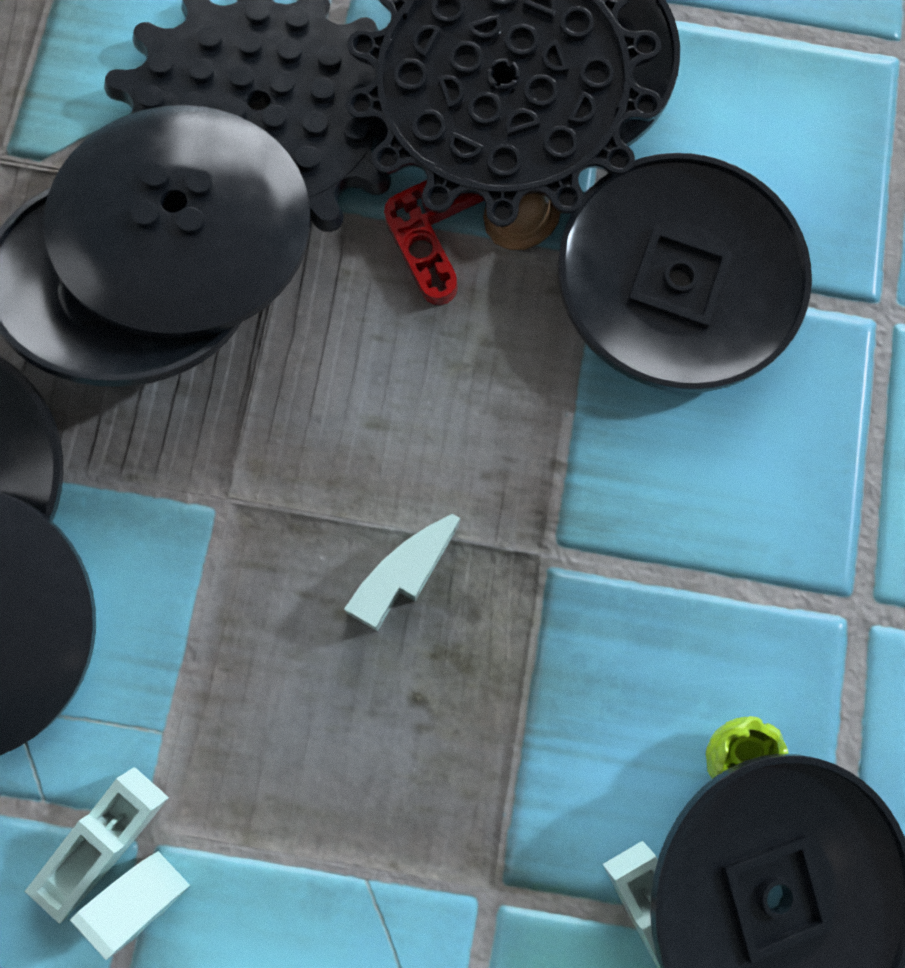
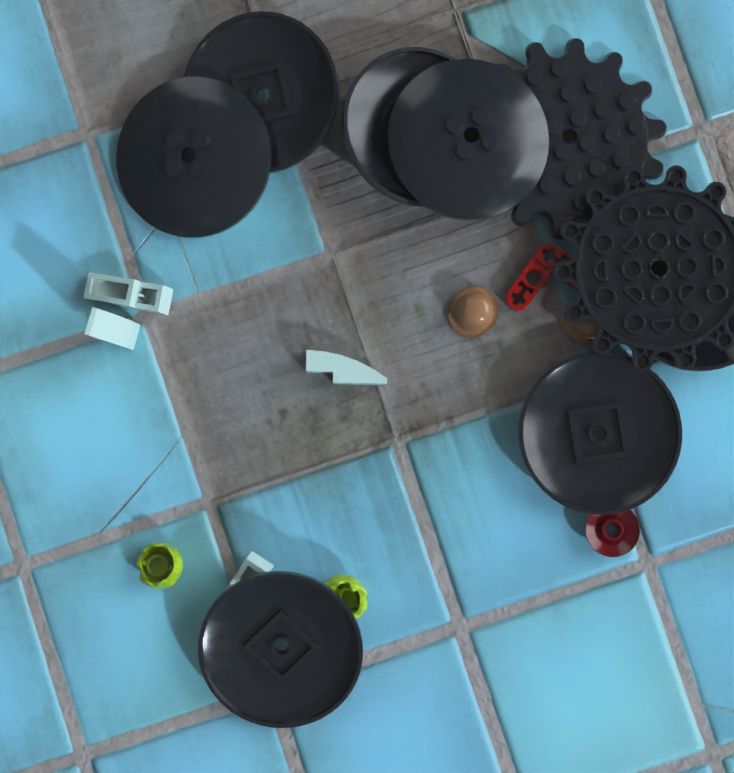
camera: 75 degrees right, 10 degrees up
(422, 353) = (473, 312): none -> medium nougat hat
(843, 328) = (618, 544): none -> dark red dish

